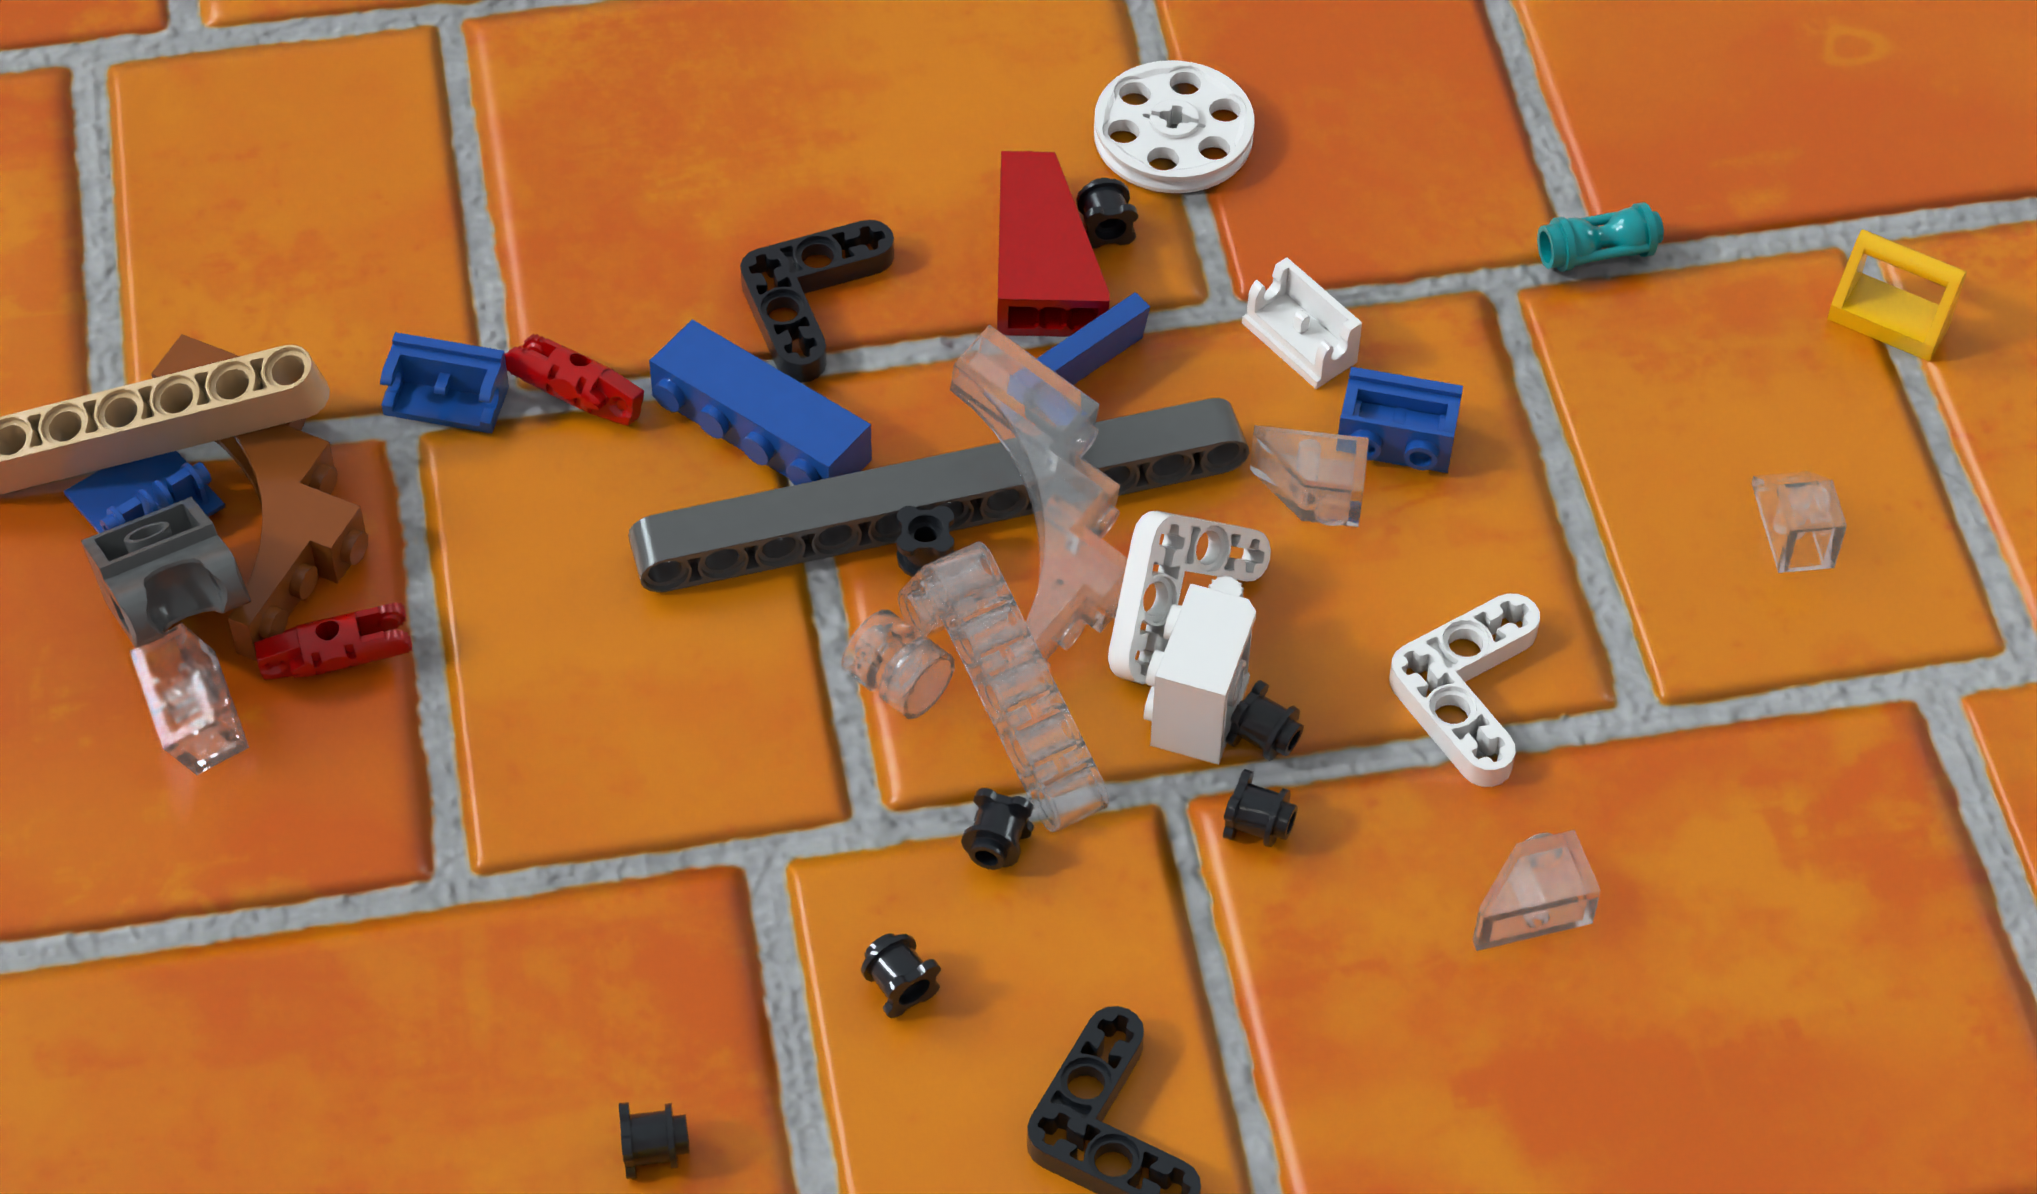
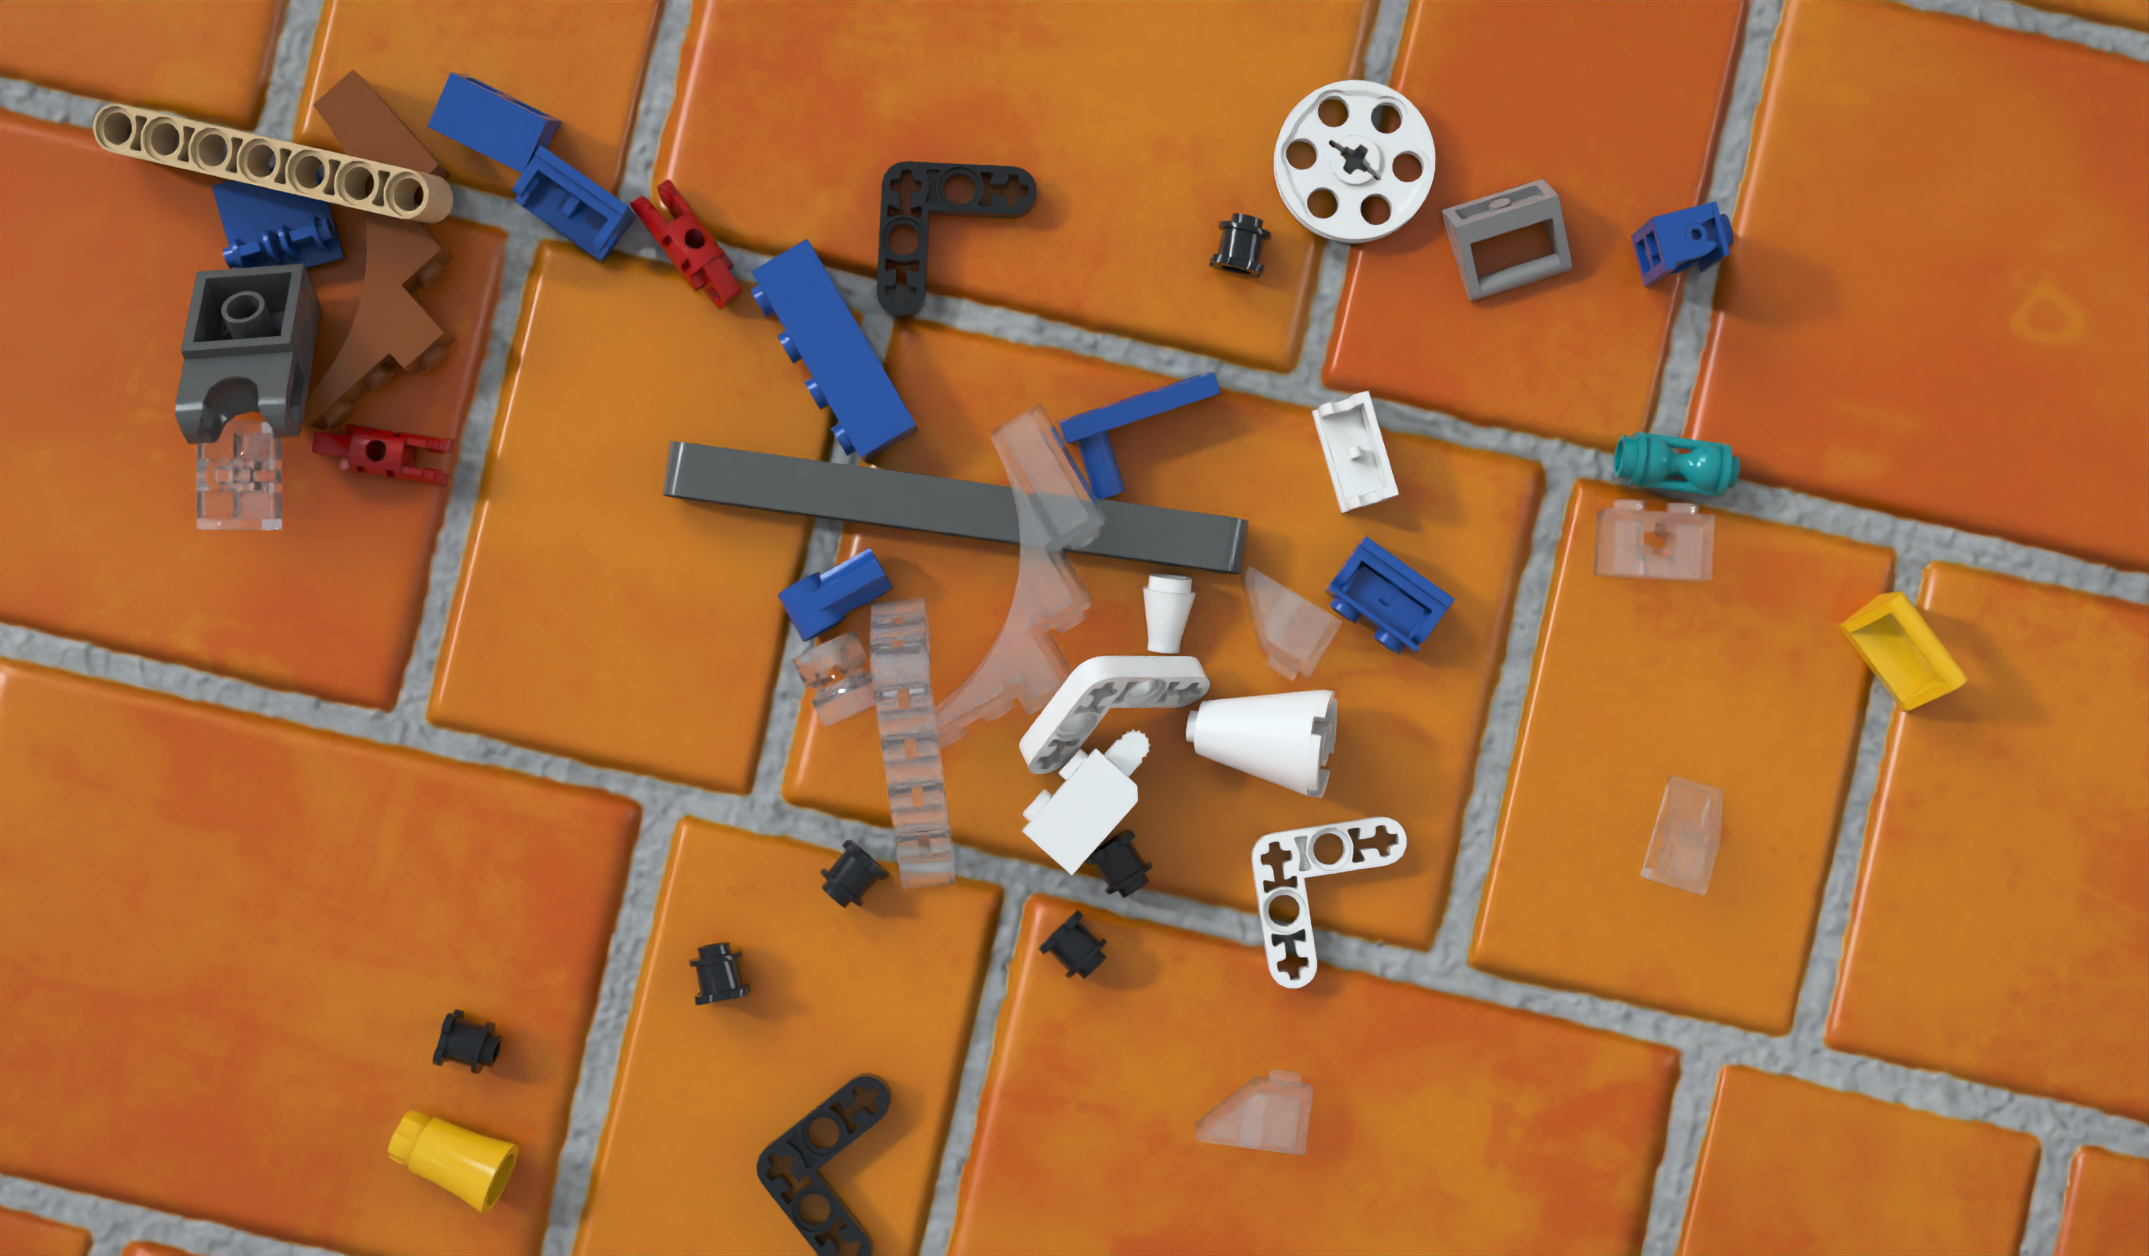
camera: 25 degrees right, 35 degrees up
(339, 335) = (491, 121): none -> blue hinge
(871, 586) = (824, 599): none -> blue piece
(923, 537) = (907, 543): black brick -> none
(1045, 258) = (1159, 276): red slope -> none
(1191, 493) = (1167, 609): none -> white cone
(1352, 559) = (1270, 736): none -> white cone
(1371, 101) = (1499, 215): none -> light grey tile
(1500, 68) = (1679, 238): none -> blue hinge
(1620, 301) = (1686, 549): none -> clear brick

